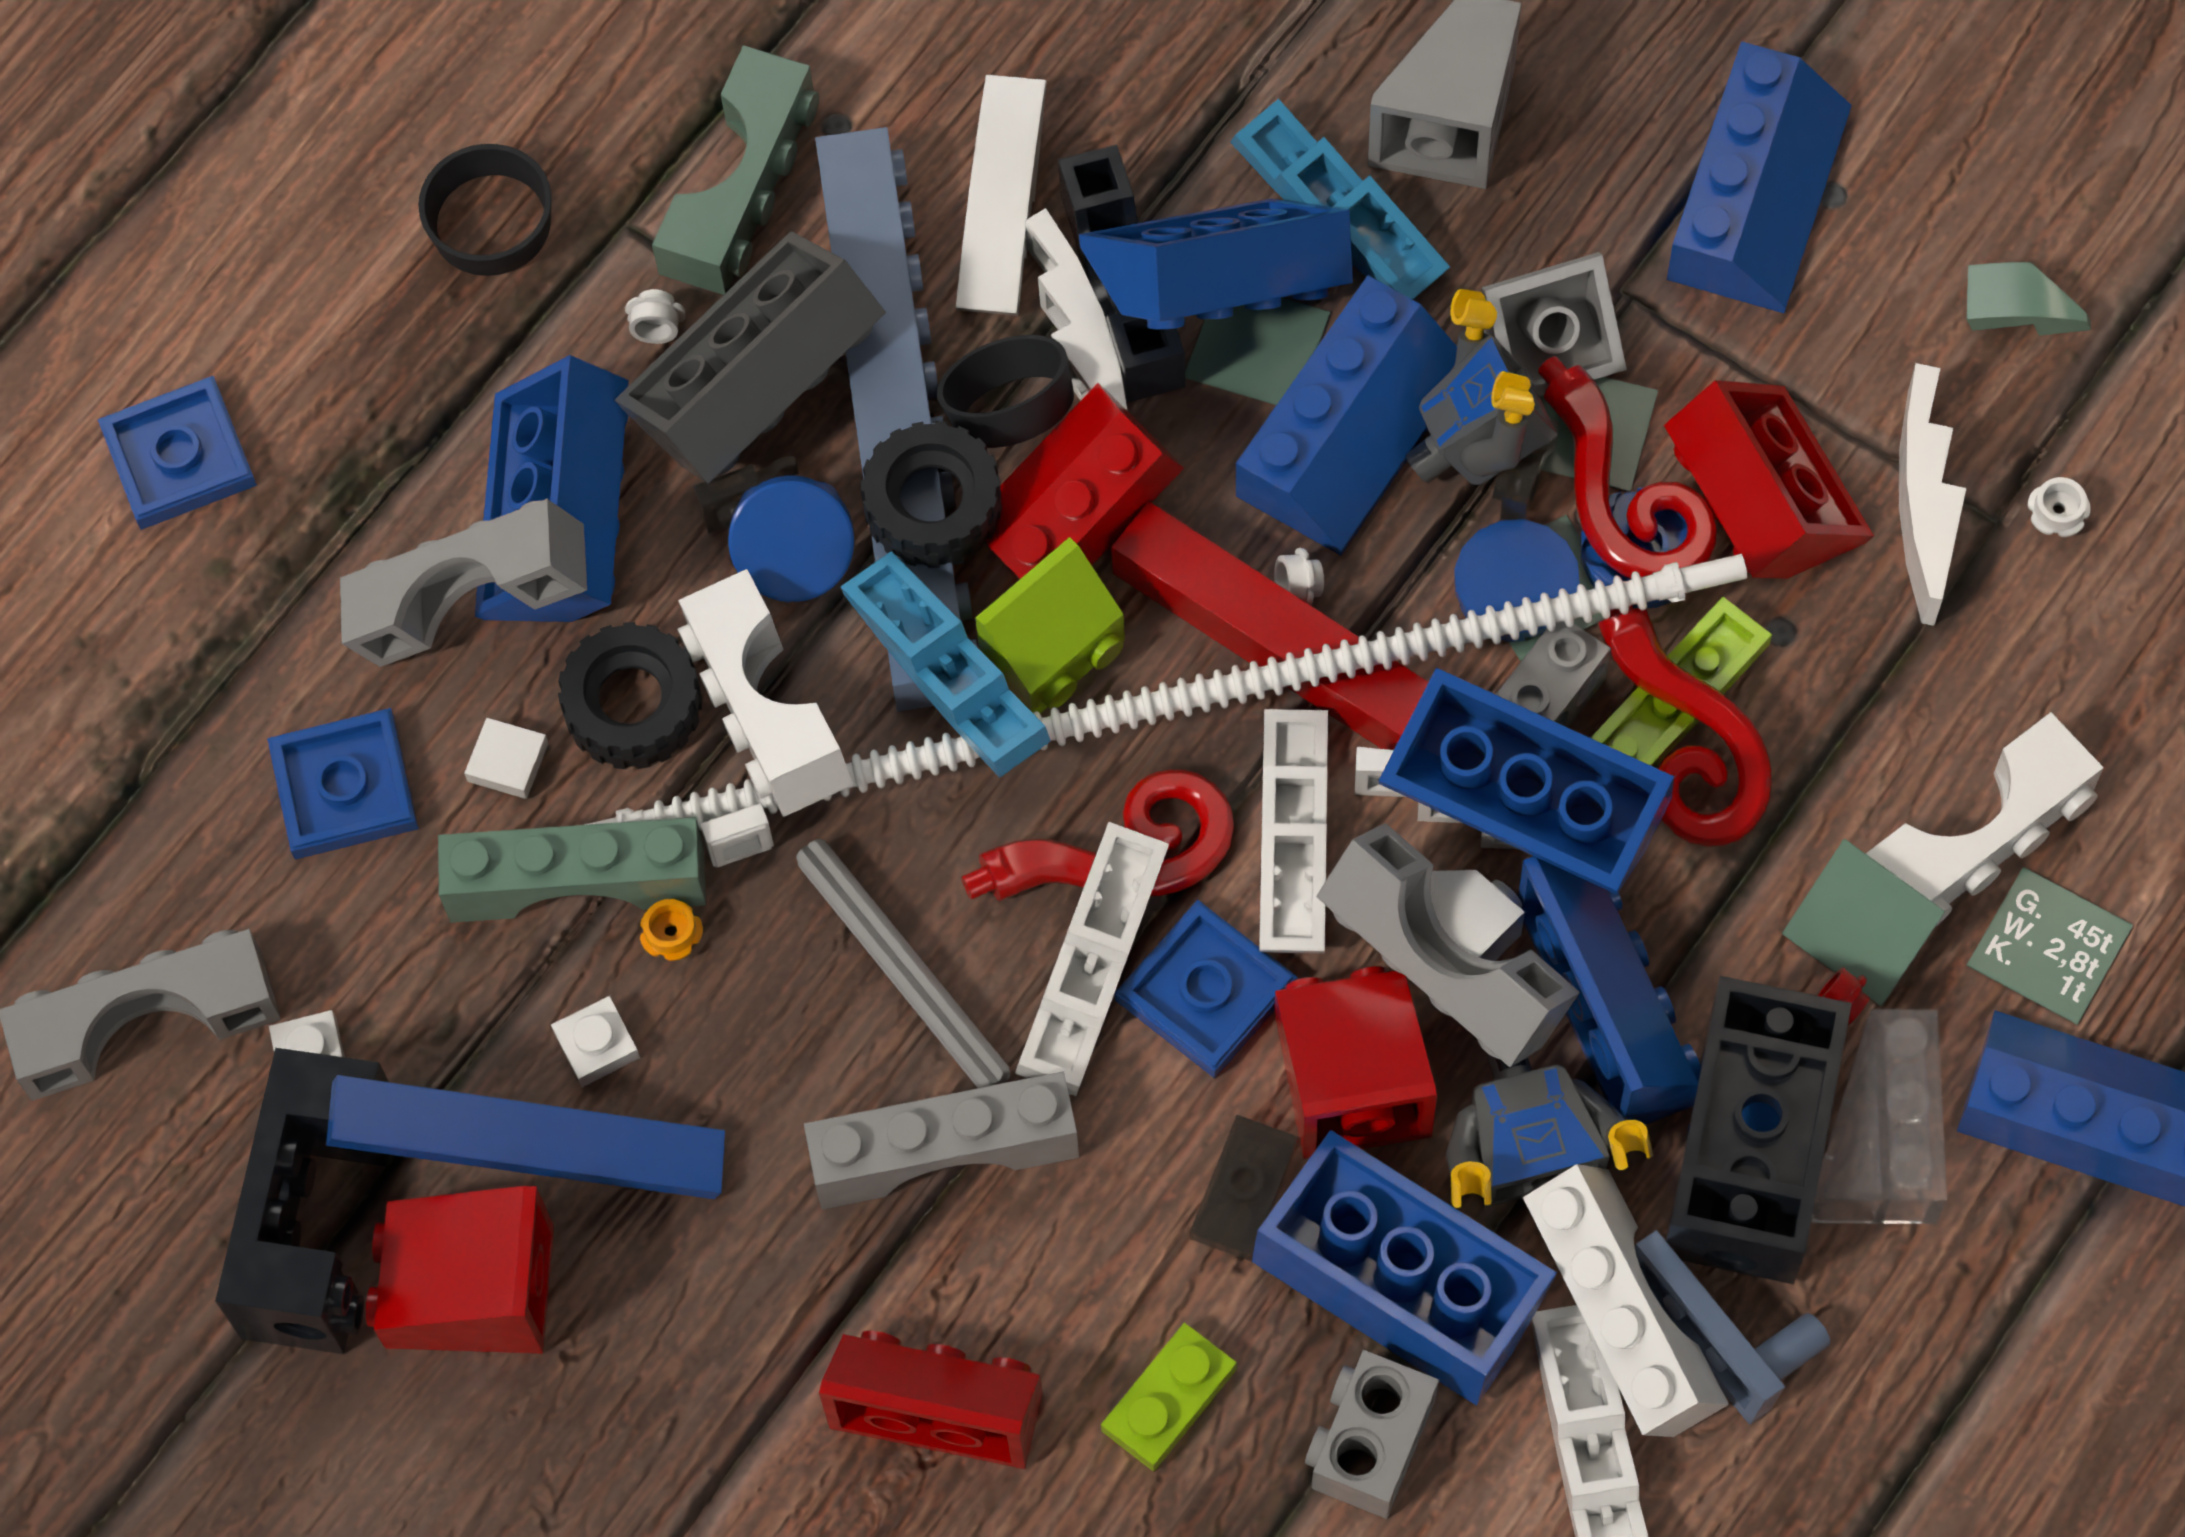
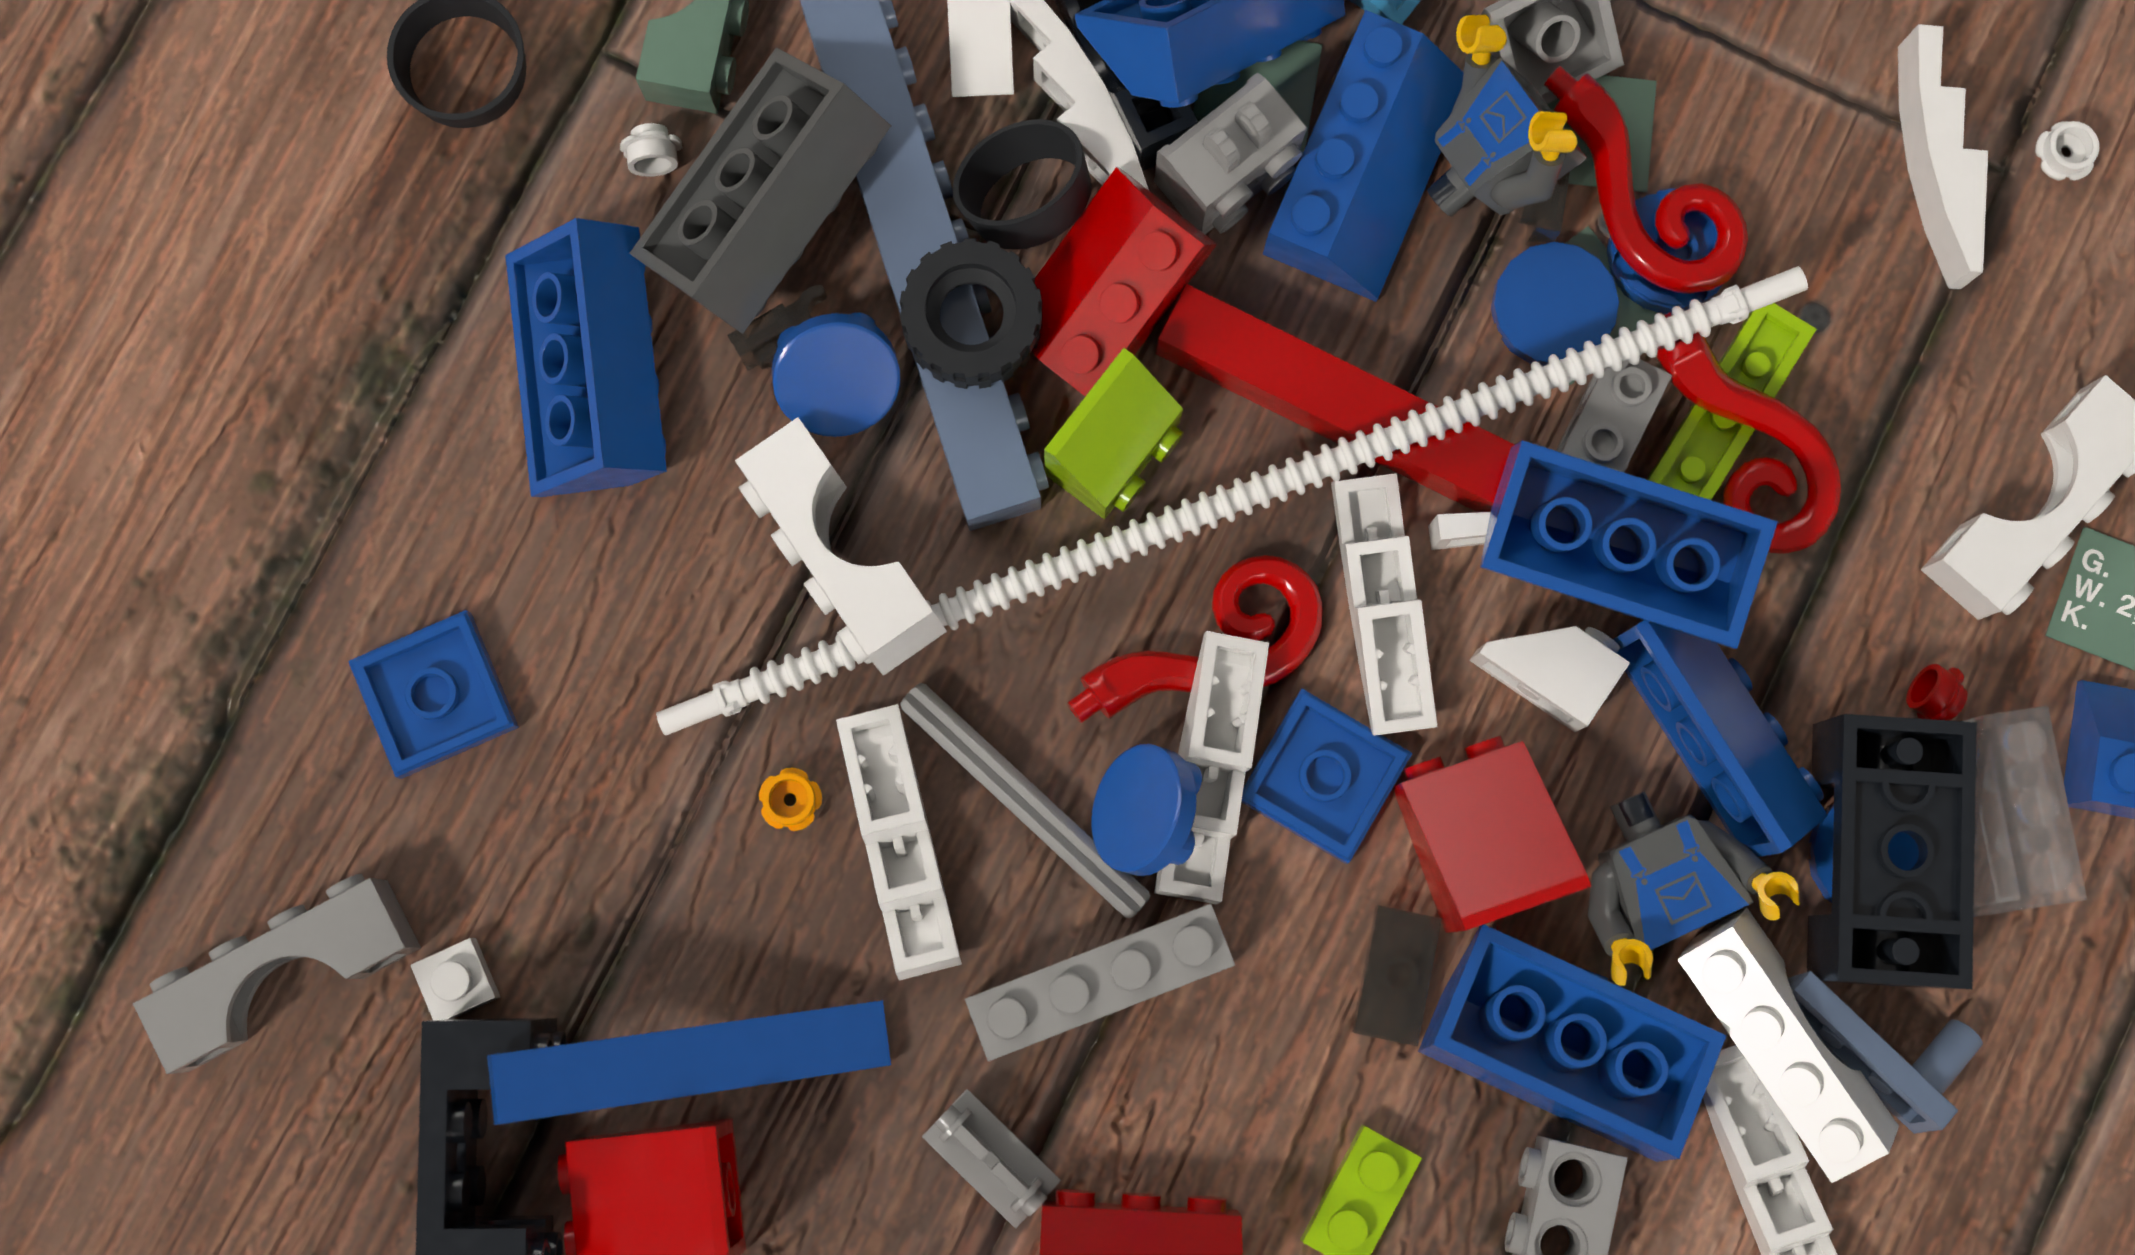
camera: 15 degrees left, 15 degrees up
(177, 452) = (194, 366): blue tile -> none
(400, 601) = (455, 502): light grey arch -> none
(506, 758) = (592, 643): white tile -> none
(507, 870) = (679, 755): sand green arch -> none
(595, 1041) = (737, 925): white plate -> none
(622, 649) = (669, 526): black tyre -> none
(737, 835) = (838, 694): white tile -> none
(769, 985) = (898, 842): none -> white slope
(801, 1296) = (991, 1159): none -> light grey hinge
(945, 663) = (1018, 493): dark azure slope -> none
(1018, 980) = (1146, 810): none -> blue tile
(1211, 391) = (1231, 157): none -> light grey hinge
(1300, 575) = (1343, 335): white plate -> none
(1386, 898) = (1630, 767): light grey arch -> none
(1766, 478) = (1782, 164): red slope -> none
(1863, 921) = (1953, 615): sand green sticker -> none

